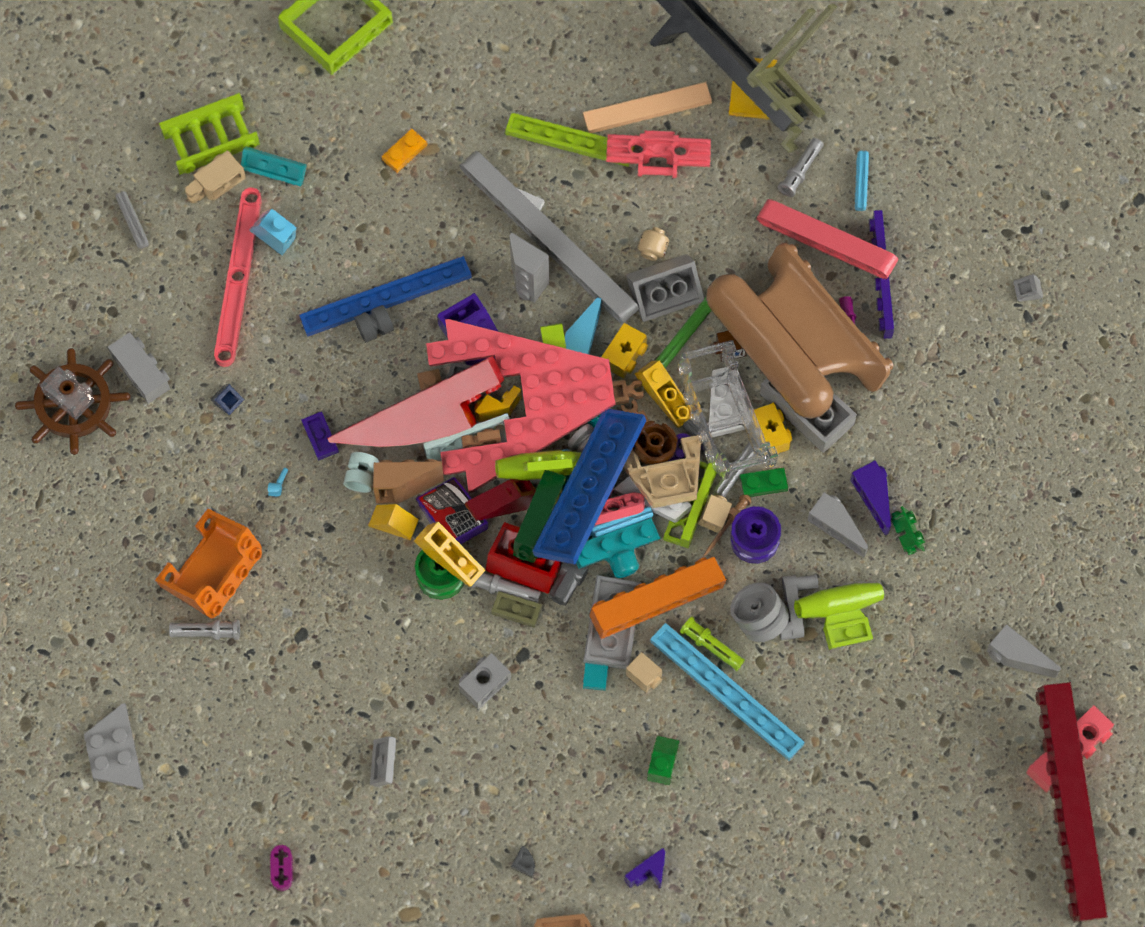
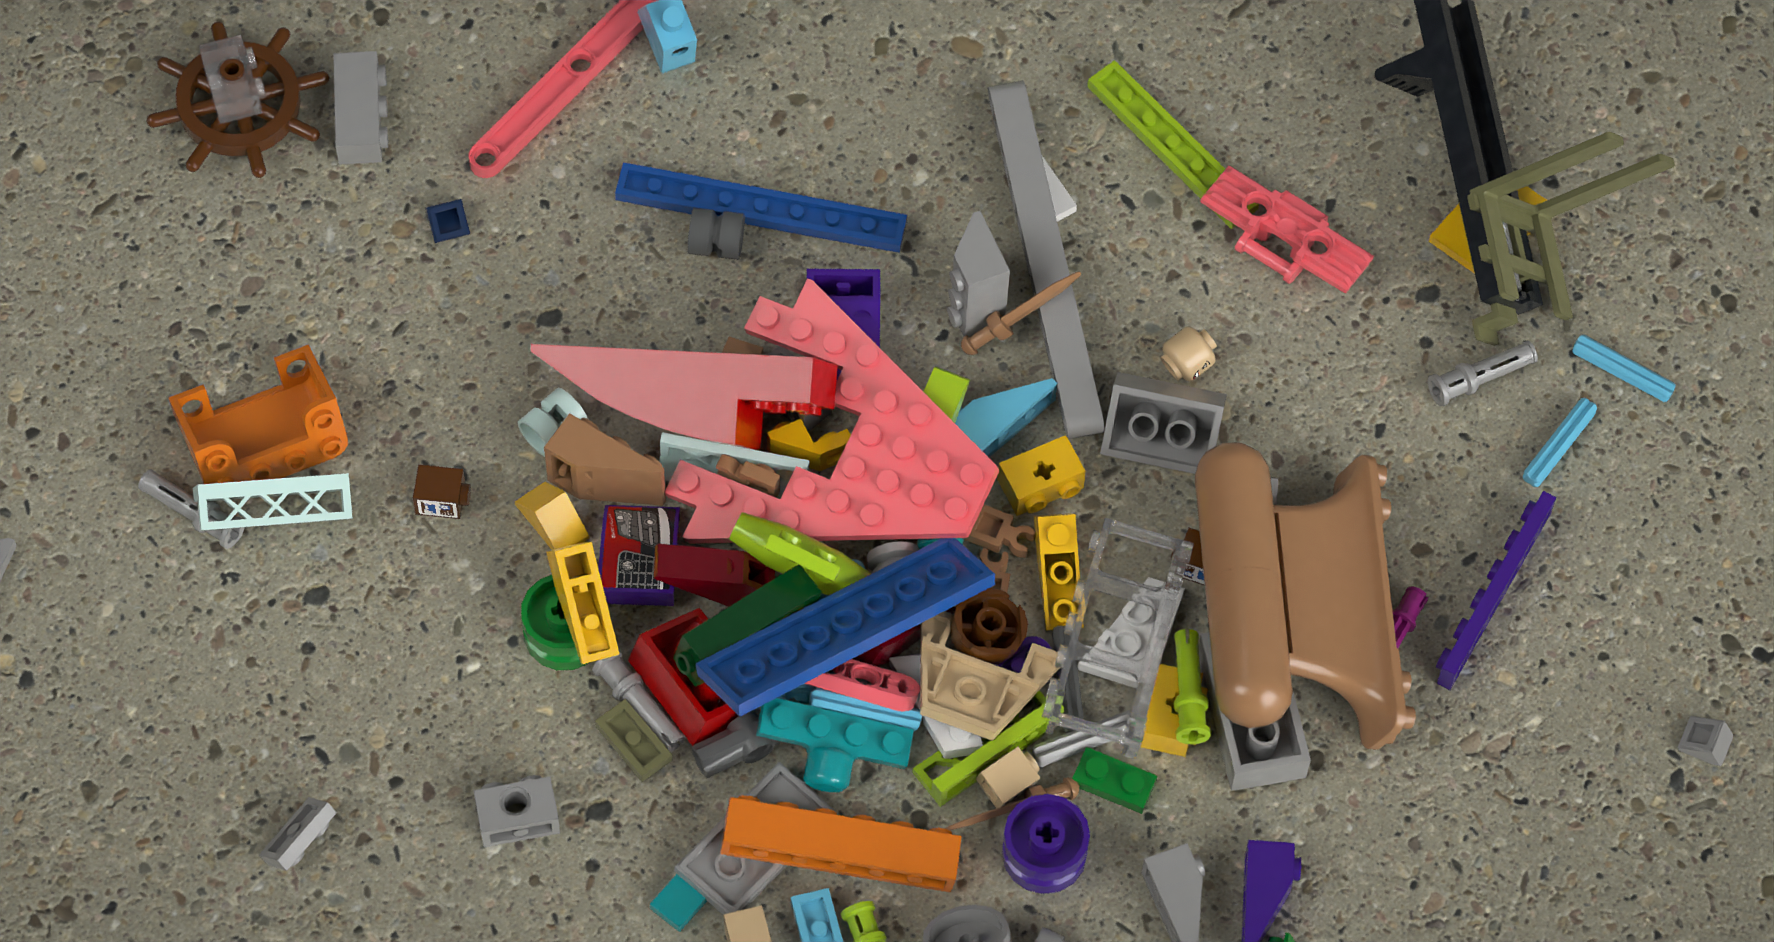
camera: 30 degrees right, 5 degrees down
(241, 595) = (267, 489): none -> light aqua fence
(276, 488) = (424, 377): medium azure hand -> none
(287, 867) = (51, 887): magenta beam -> none
(318, 432) = (535, 326): dark purple plate -> none
(328, 543) = (440, 492): none -> reddish brown brick
(404, 150) = (930, 28): light orange plate -> none
(551, 286) = (999, 325): none -> medium nougat sword
(647, 108) = (1316, 164): light nougat tile -> none
(684, 334) = (1138, 507): bright green axle -> none
(780, 420) = (1191, 701): none -> lime pin
(827, 239) = (1446, 491): coral beam -> none
(866, 124) = (1624, 368): none -> medium azure axle

